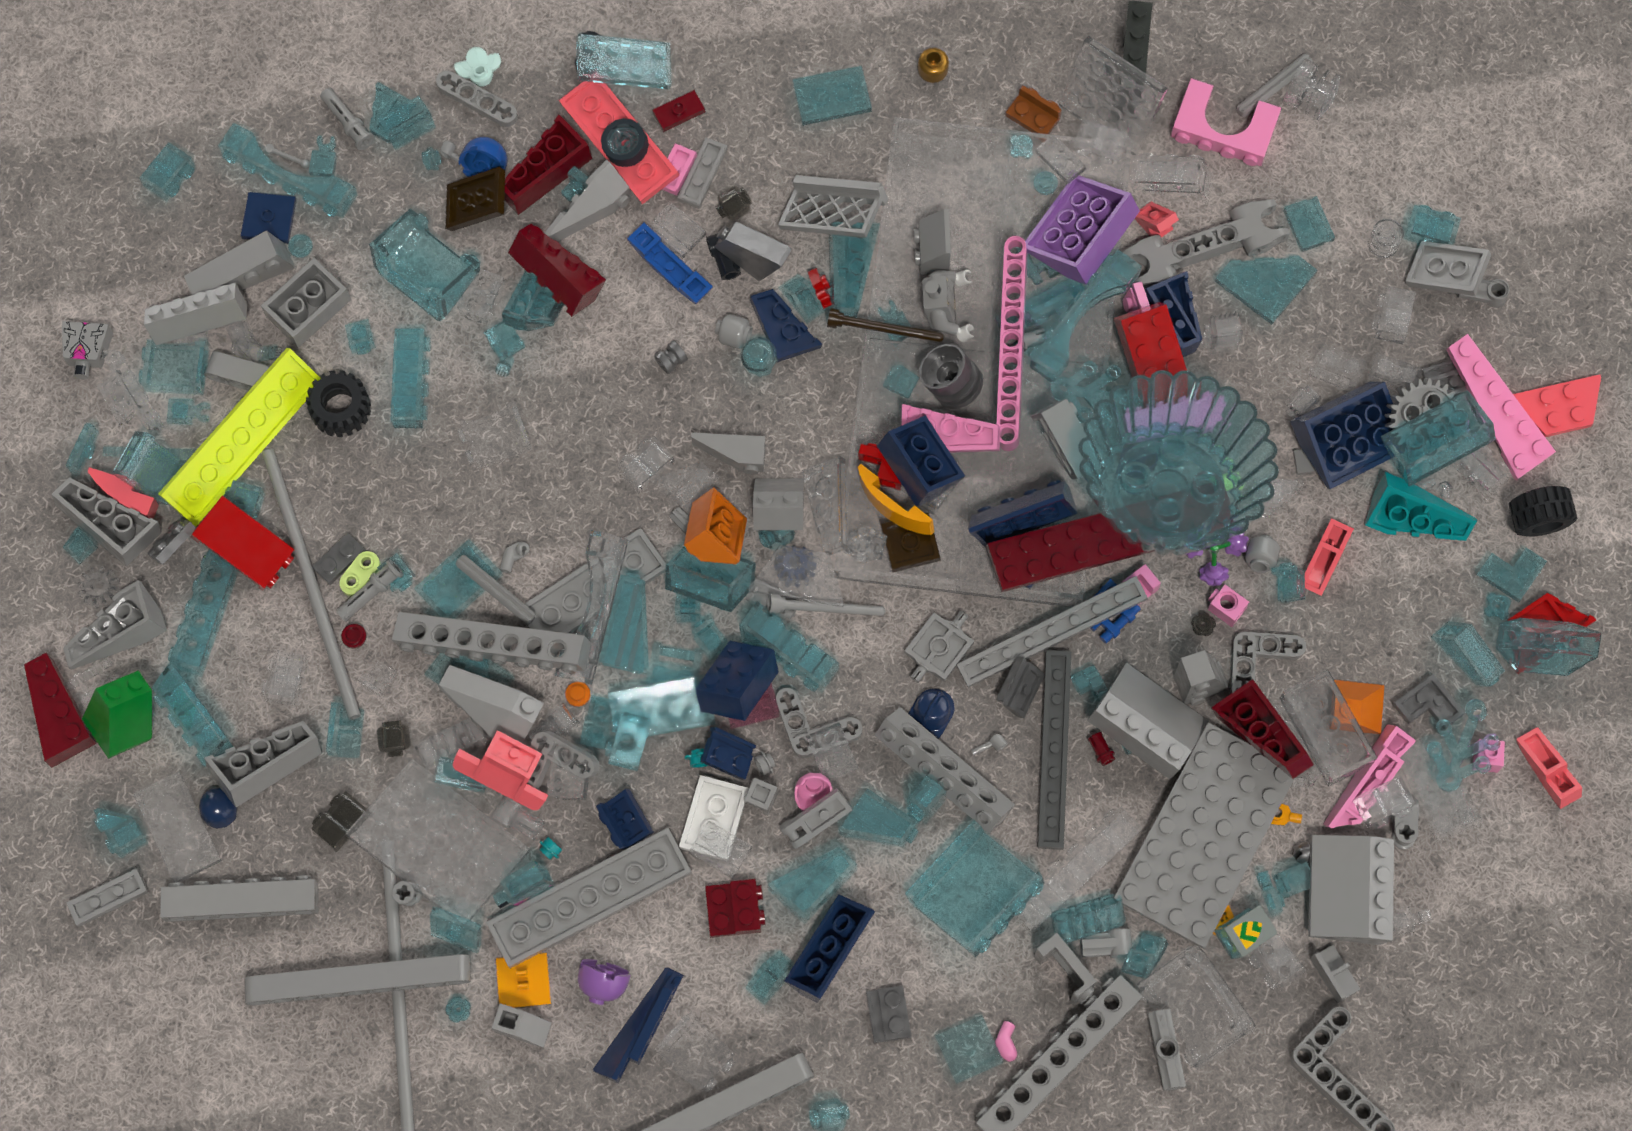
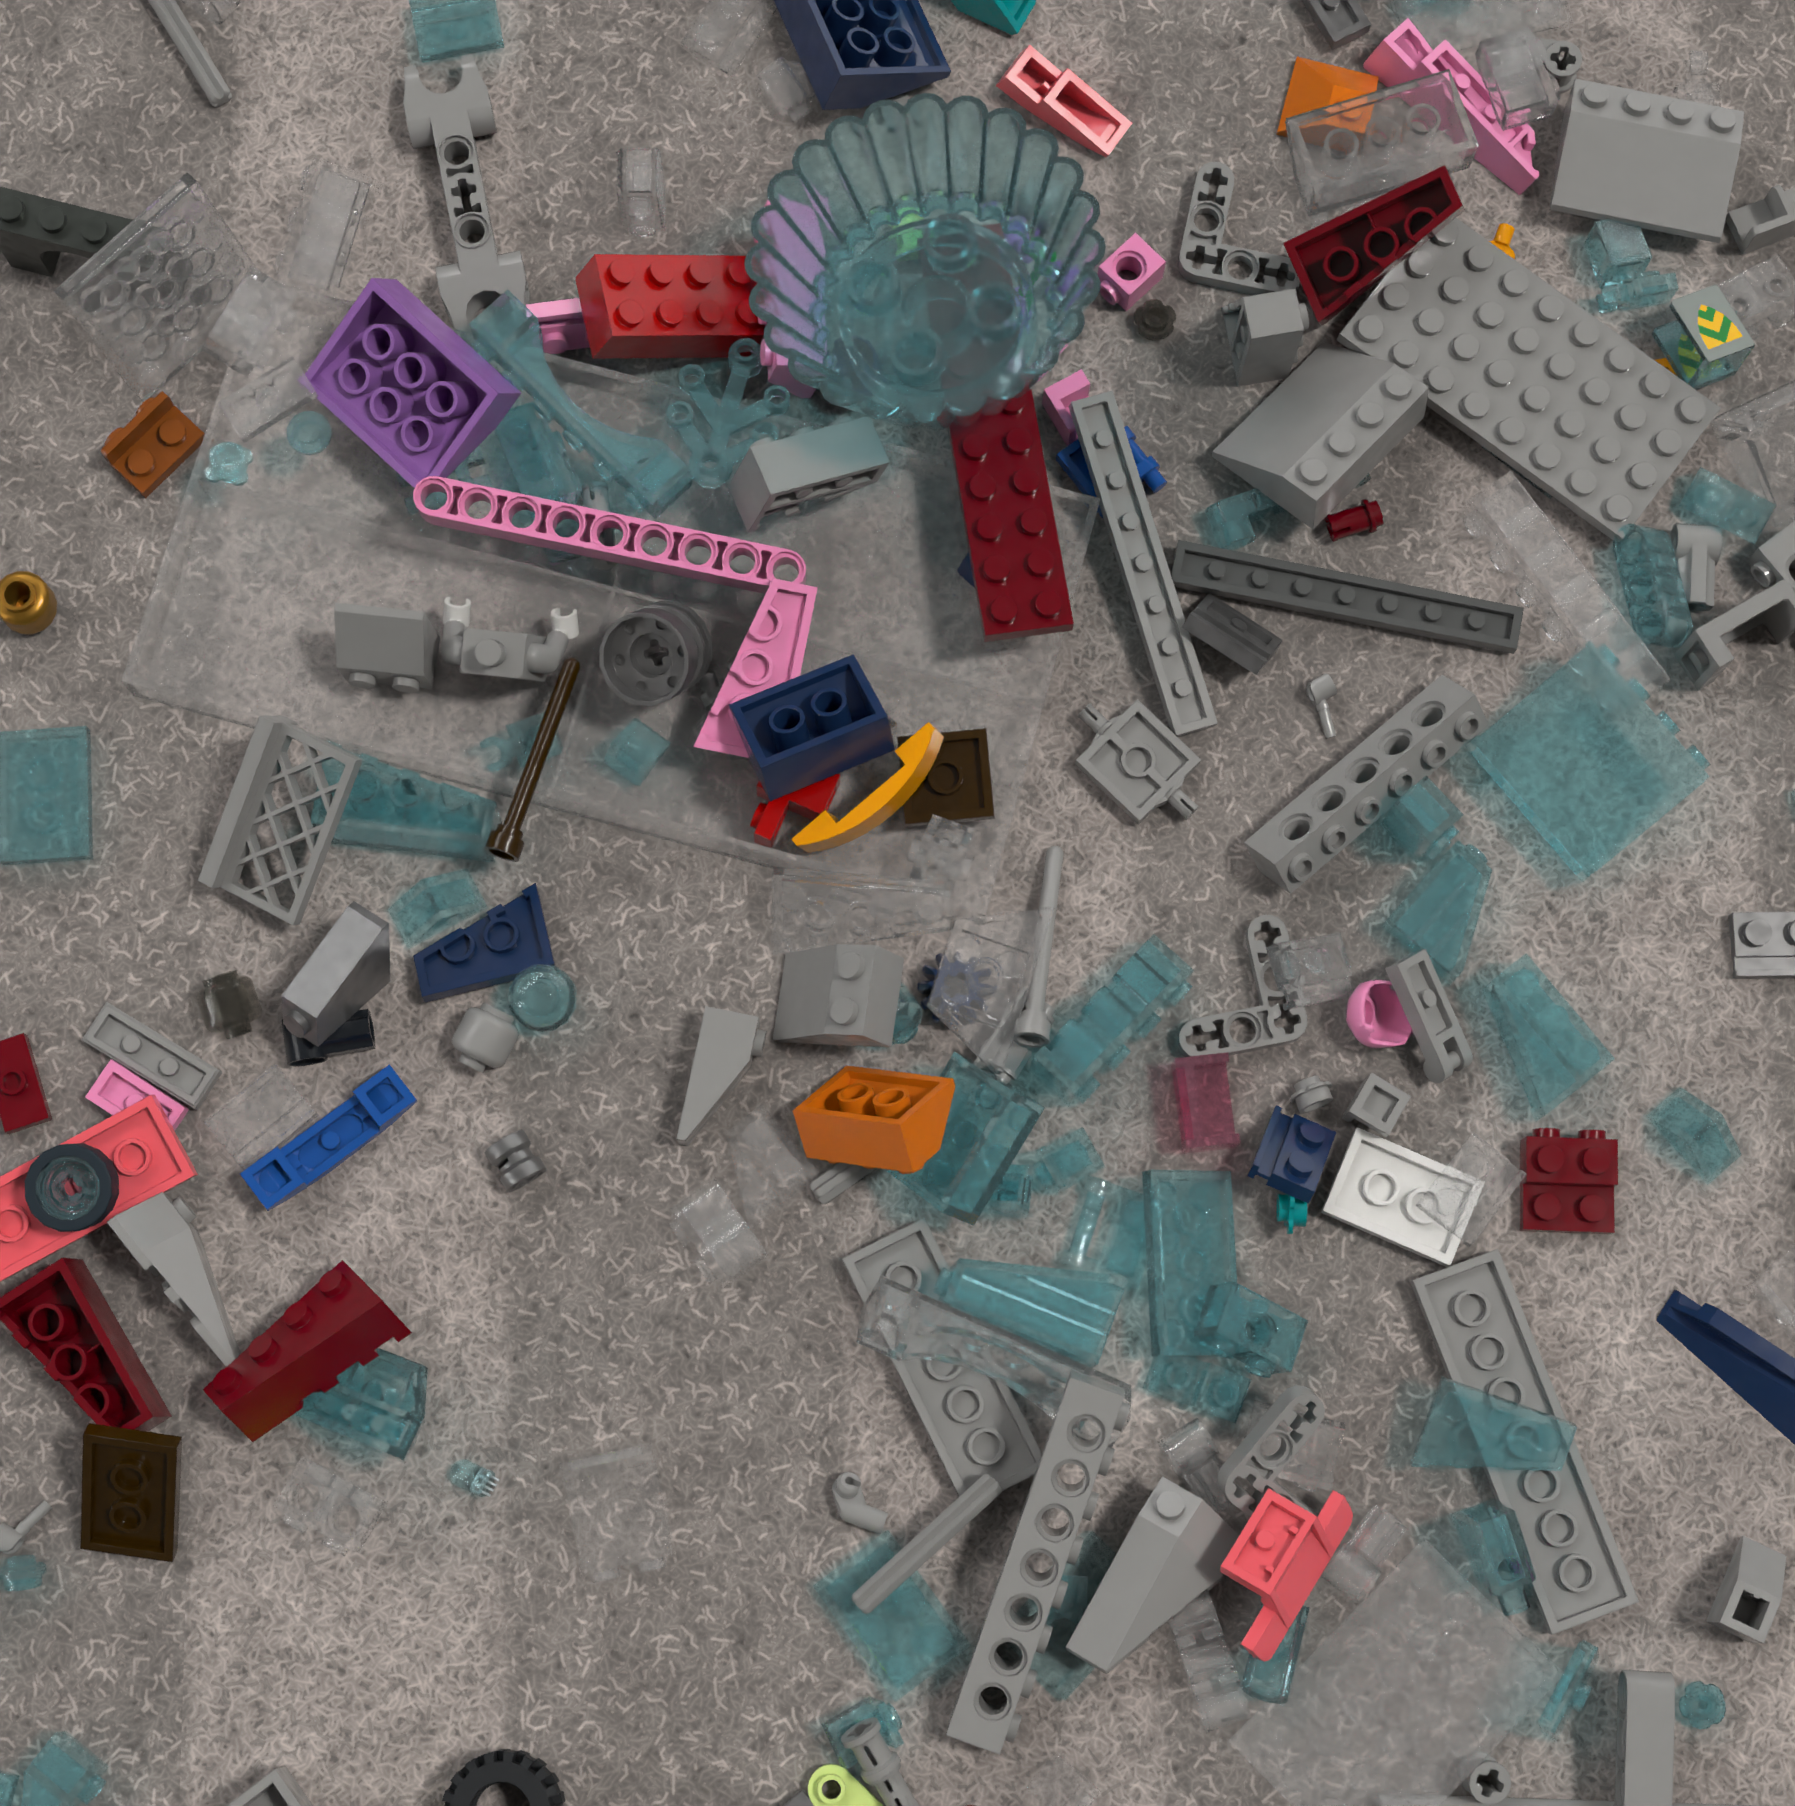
camera: 85 degrees left, 5 degrees up
(360, 337) = (368, 1755): clear light blue bracket -> none
(393, 738) = (1184, 1772): clear smoke head -> none
(409, 378) = (474, 1665): clear light blue brick -> none
(422, 265) = (249, 1609): clear light blue windscreen -> none
(481, 155) = (44, 1467): blue cylinder -> none
(504, 340) = (428, 1471): clear light blue panel -> none
(524, 983) = (1666, 1579): light orange piece -> none
(550, 848) = (1424, 1500): teal plate -> none
(577, 184) = (139, 1294): clear light blue bracket -> none
(577, 694) = (1145, 1417): orange plate -> none
(590, 869) = (1486, 1430): none -> clear light blue wing
(602, 981) = (1682, 1431): medium lavender cylinder -> none
(624, 820) = (1389, 1357): dark blue bracket -> none
(737, 680) = (1171, 1115): dark blue brick -> none
(821, 287) = (425, 865): red plate -> none
(828, 947) = (1673, 1019): dark blue slope -> none
(933, 710) = (1248, 792): dark blue piece -> none
(1023, 514) = (932, 567): dark blue slope -> none
(1156, 219) = (408, 261): coral slope -> none
(1178, 297) = (560, 255): dark blue wedge -> none
(1247, 146) = (239, 177): bright pink arch -> none
(1266, 283) = (555, 111): clear light blue plate -> none
(1290, 582) = (1107, 166): clear light blue bracket -> none
(1302, 853) = (1571, 227): flat silver hinge -> none

